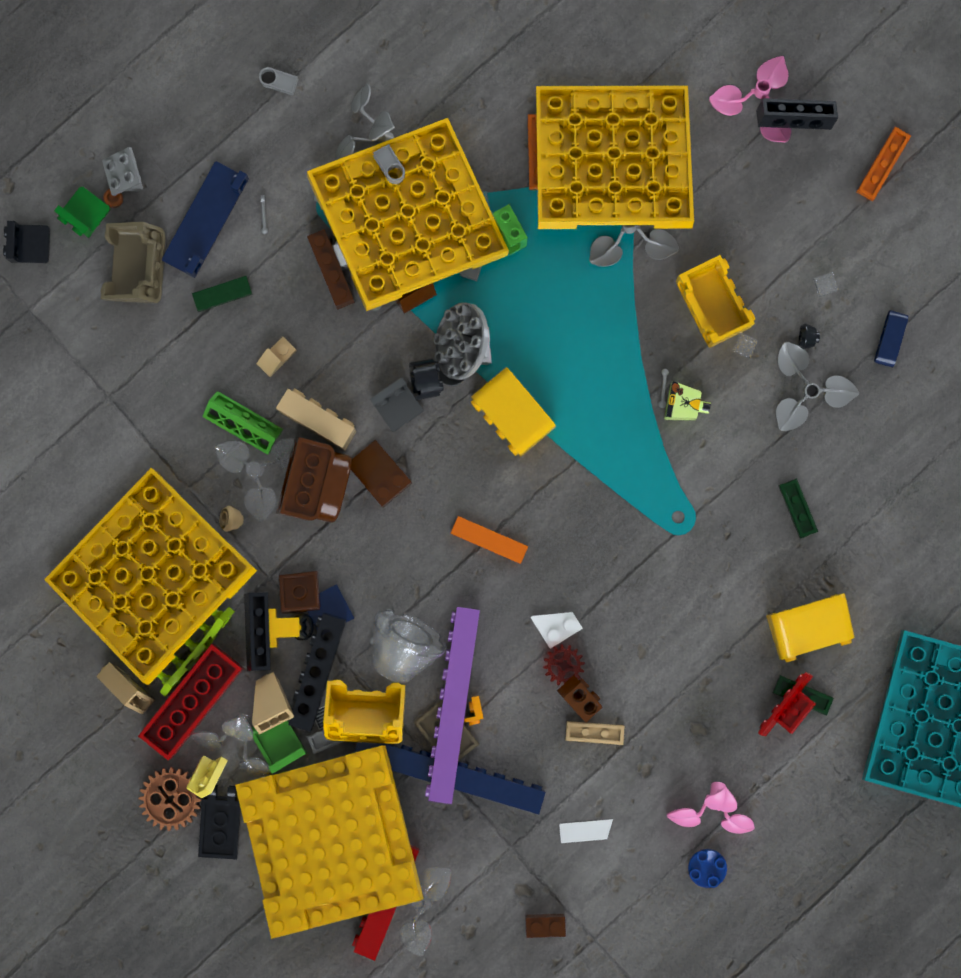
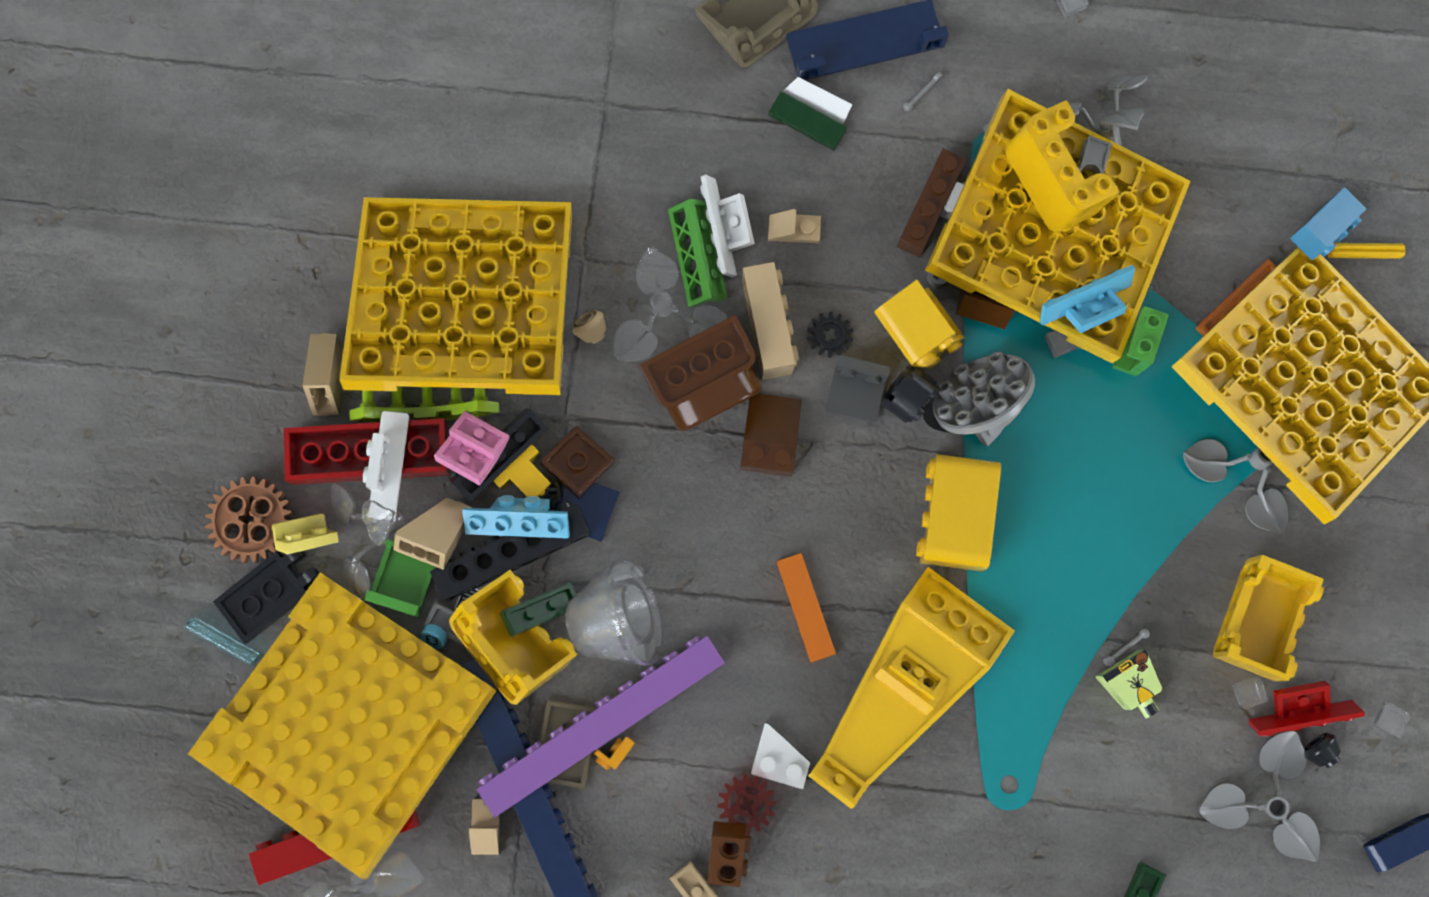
camera: 45 degrees right, 5 degrees down
(205, 693) = (386, 459): none -> white bracket
(216, 277) = (819, 99): none -> white sticker
(224, 870) = (222, 641): none -> clear light blue axle
(241, 391) = (728, 223): none -> white bracket
(242, 643) = (472, 448): none -> bright pink slope
(302, 652) = (517, 518): none -> medium azure bracket
(325, 753) = (434, 636): none -> medium azure tile
(345, 388) = (840, 331): none -> black gear
(361, 684) = (537, 610): none -> dark green tile
(375, 196) = (1051, 173): none -> yellow windscreen
(395, 341) = (920, 325): none -> yellow windscreen
(452, 815) = (484, 831): none -> tan slope
(466, 239) = (1091, 303): none -> medium azure bracket
(539, 66) = (1329, 225): none -> dark azure brick
(571, 57) = (1368, 250): none -> yellow axle
(571, 484) = (941, 642): none -> yellow wing
(777, 326) = (1304, 707): none -> red bracket

